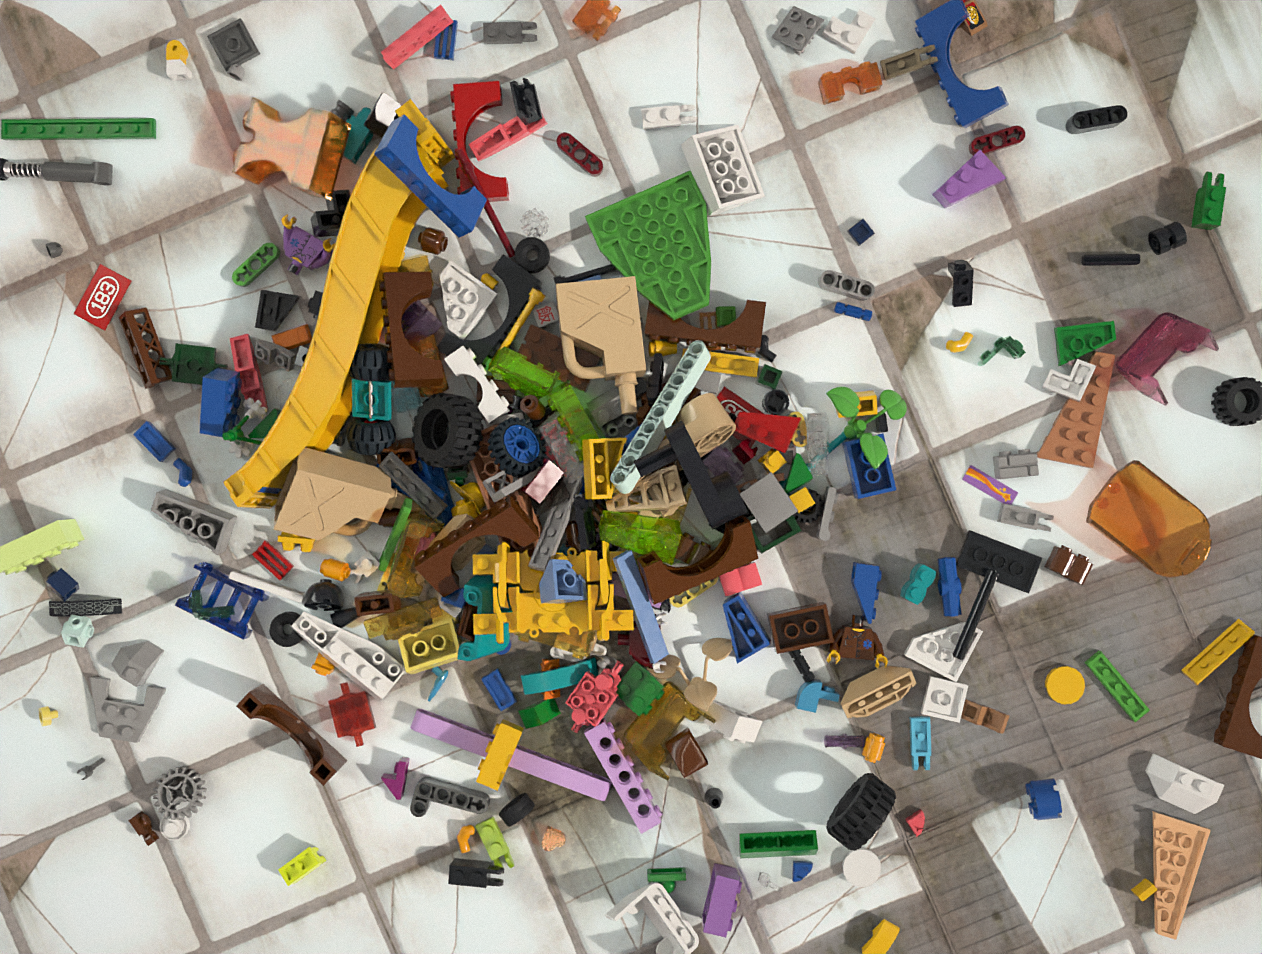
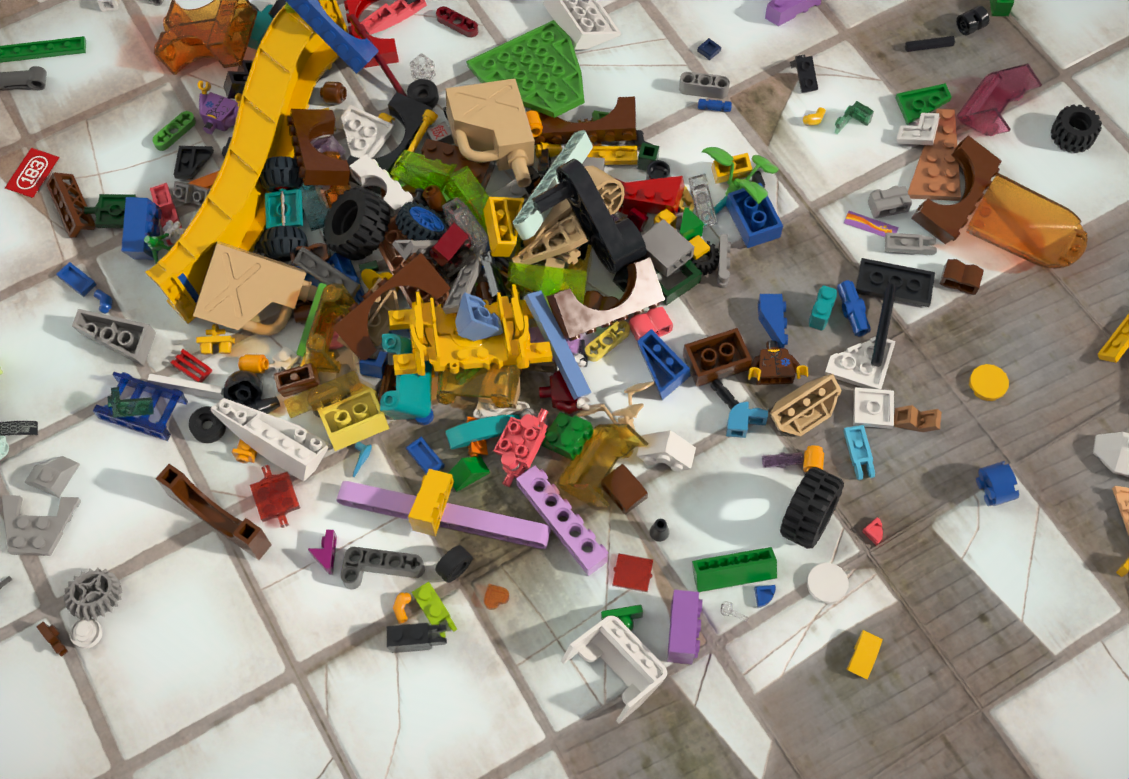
camera: 10 degrees left, 25 degrees down
(301, 865) = (225, 656): neon yellow hinge -> none
(649, 325) = (534, 122): none -> light orange brick
(683, 831) = (632, 572): none -> clear red piece
(1117, 686) = (1040, 378): bright green tile -> none
(1121, 440) = (978, 168): none -> reddish brown arch

